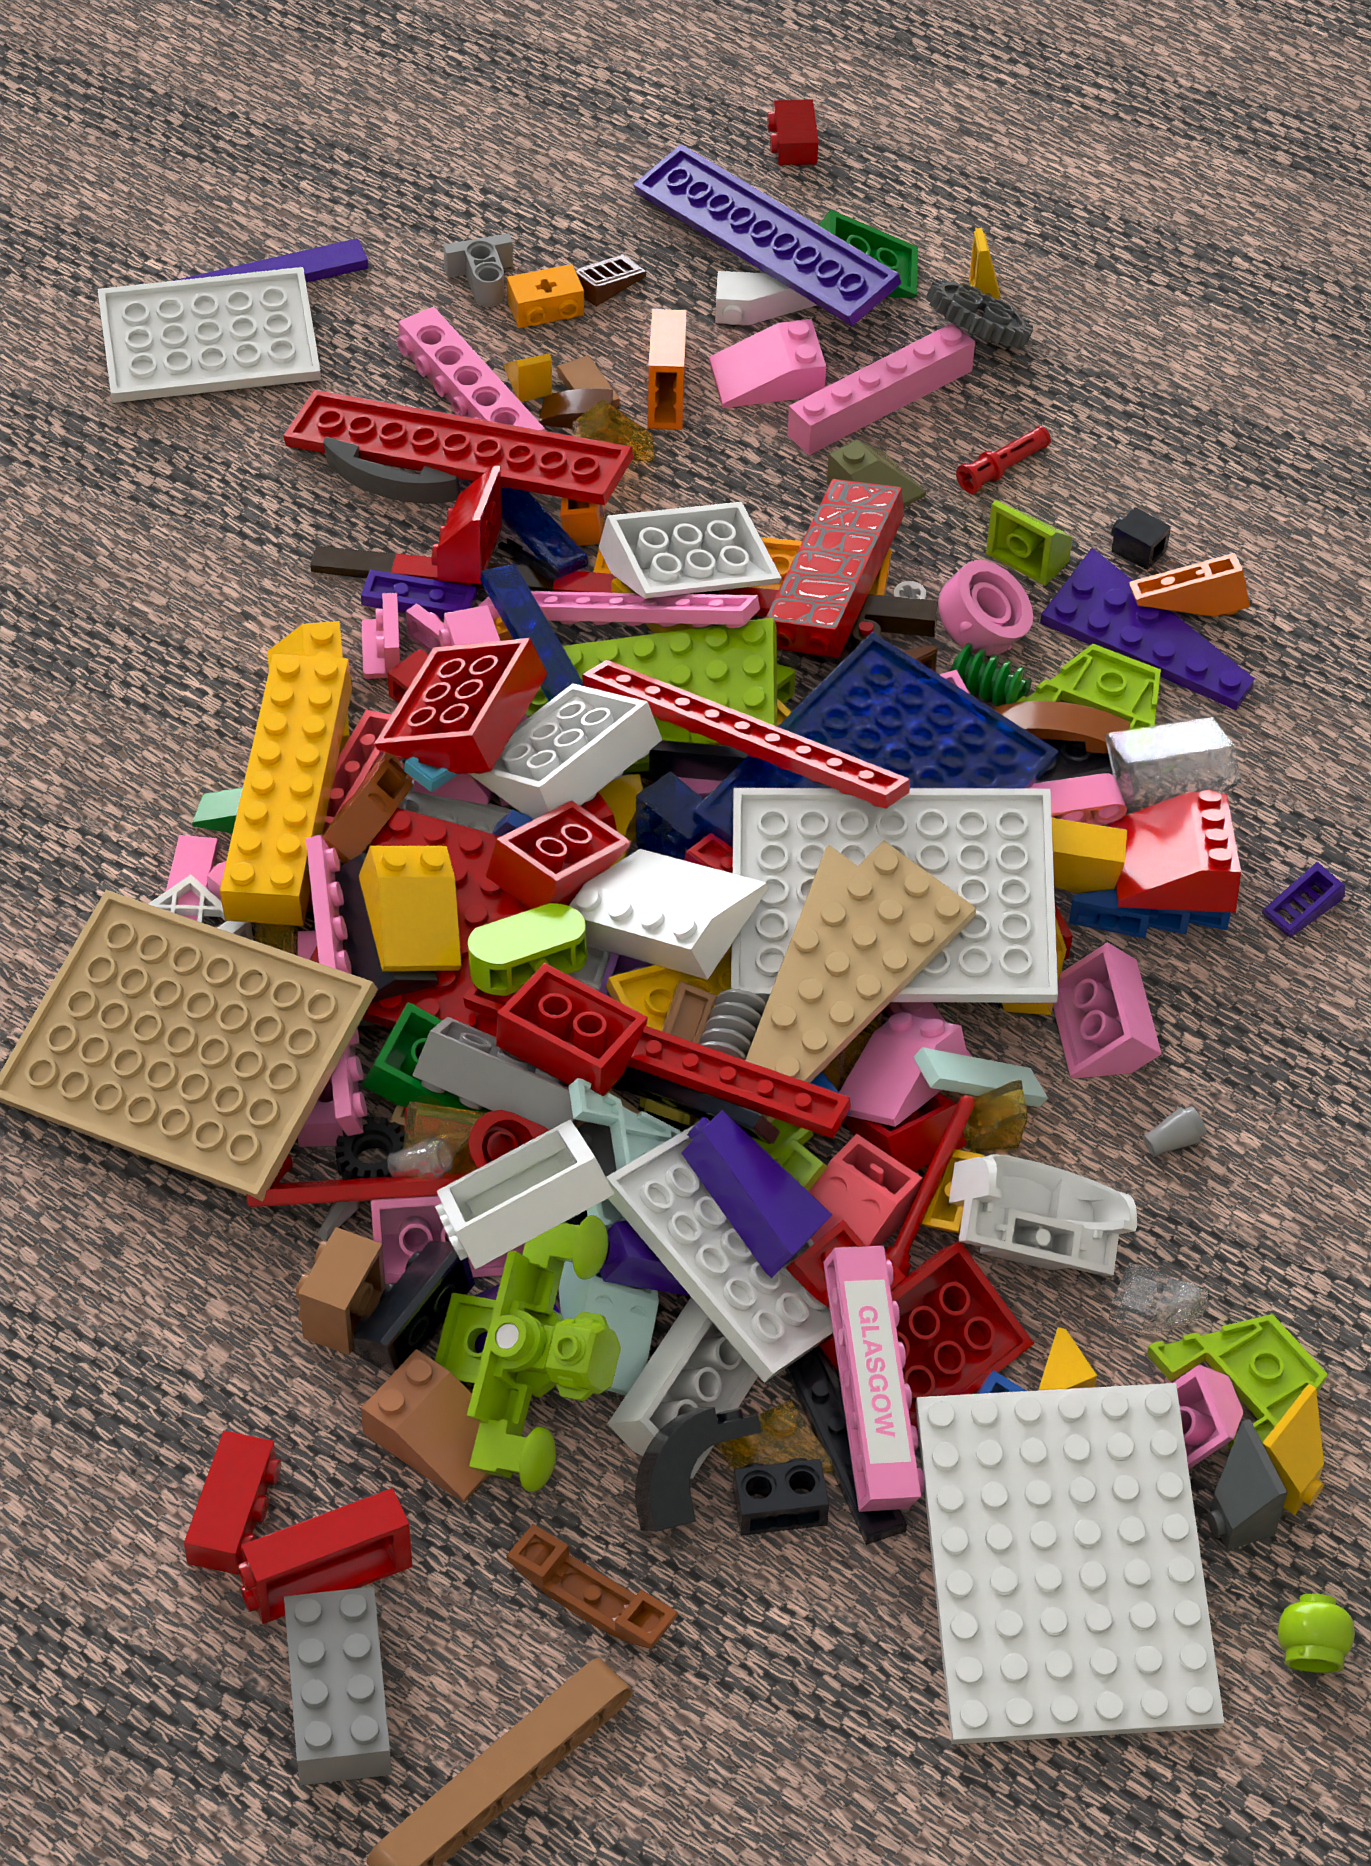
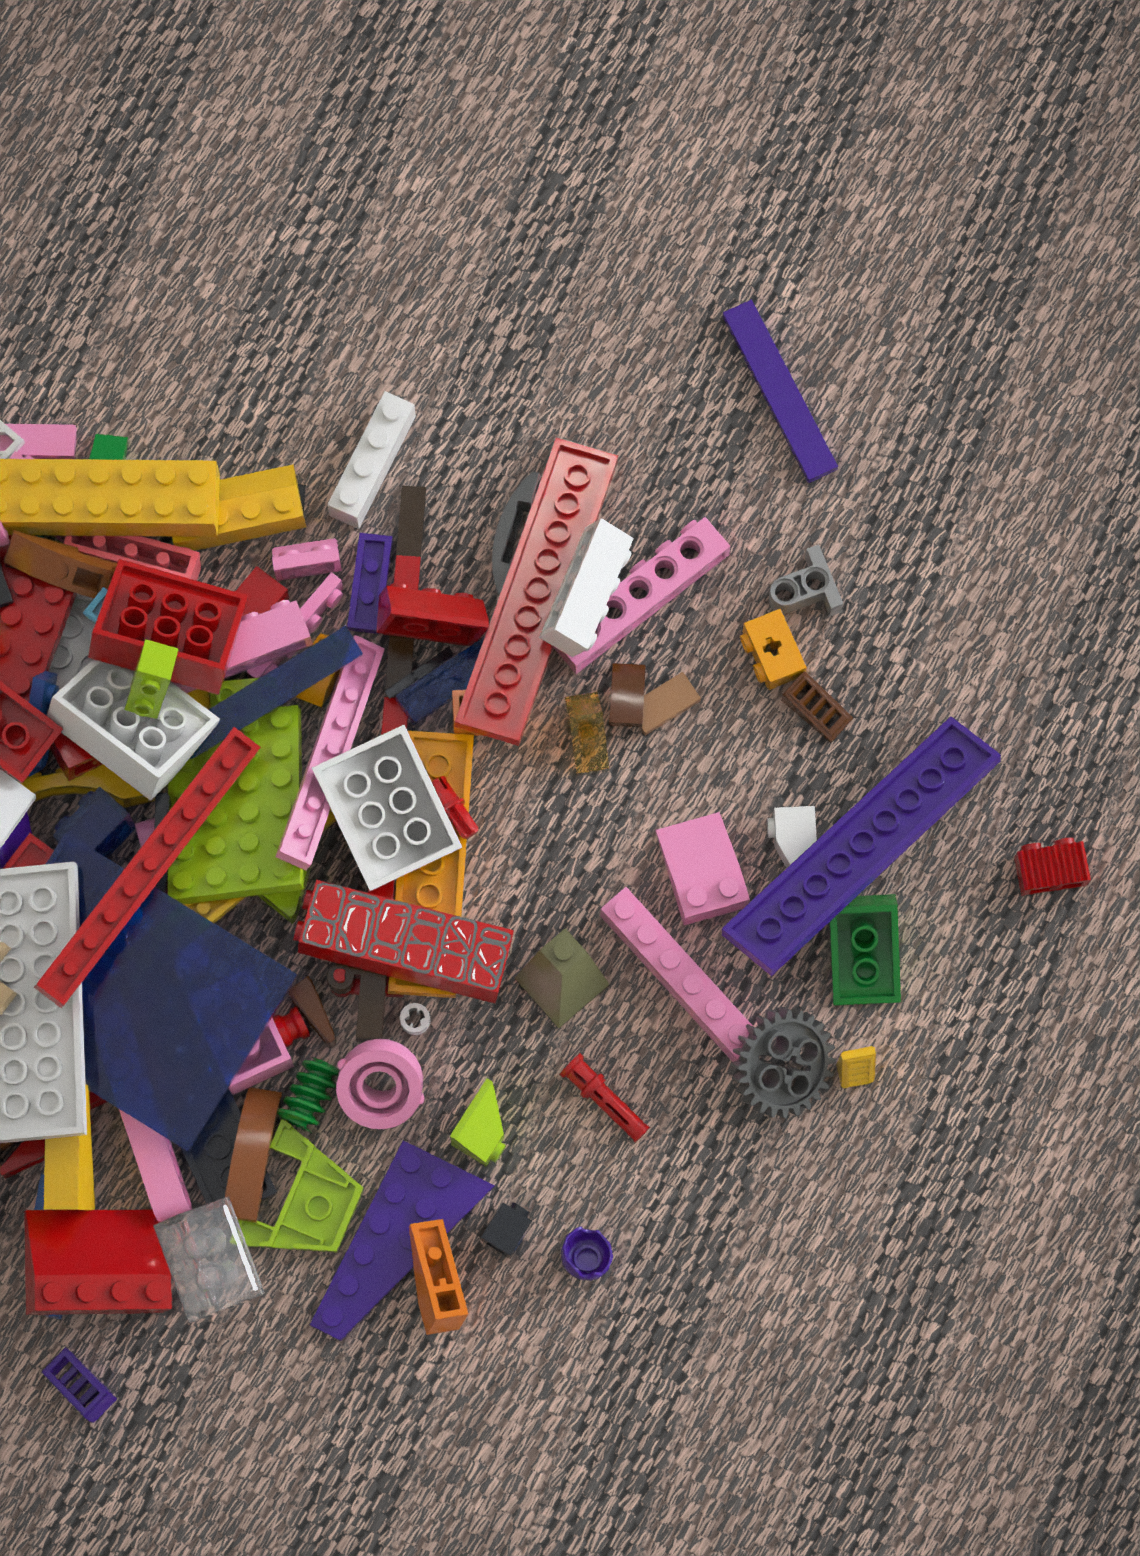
camera: 85 degrees right, 25 degrees up
(208, 334) = (680, 351): white plate -> none
(278, 577) = (371, 460): none -> white brick
(466, 396) = (587, 588): none -> white brick
(530, 377) = (668, 645): yellow slope -> none
(532, 699) = (151, 679): none -> lime brick
(666, 369) = (686, 770): orange slope -> none
(1167, 481) = (586, 1254): none -> dark purple hair

